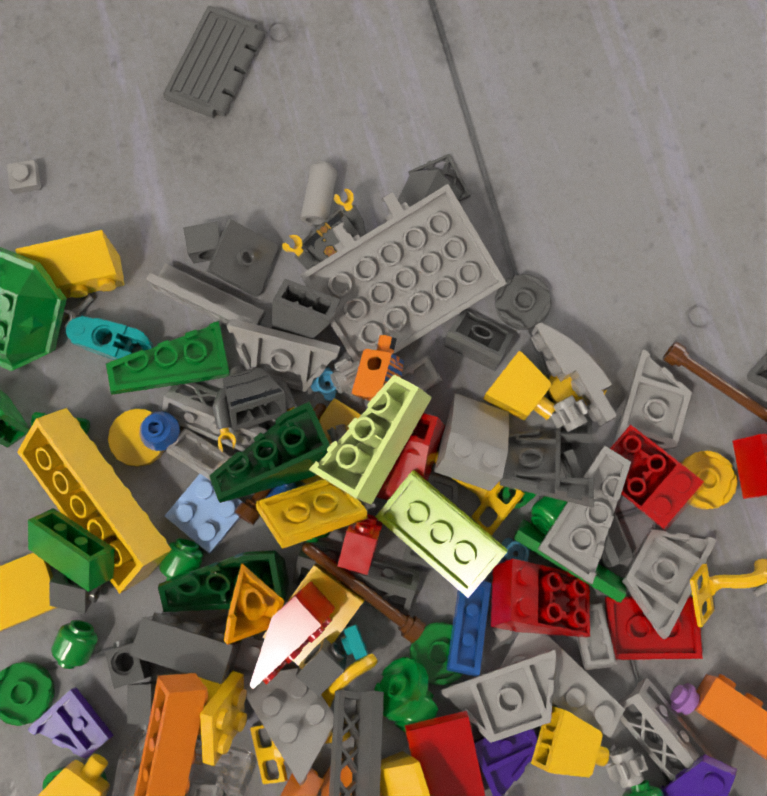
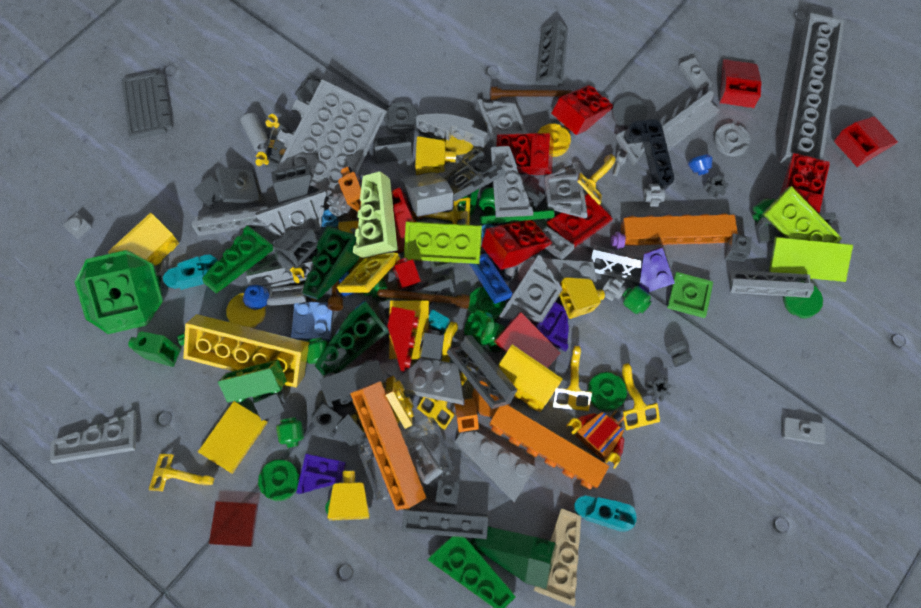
camera: 40 degrees left, 10 degrees down
(250, 607) = (373, 338): light orange slope -> none
(570, 413) = (464, 148): light grey gear -> none

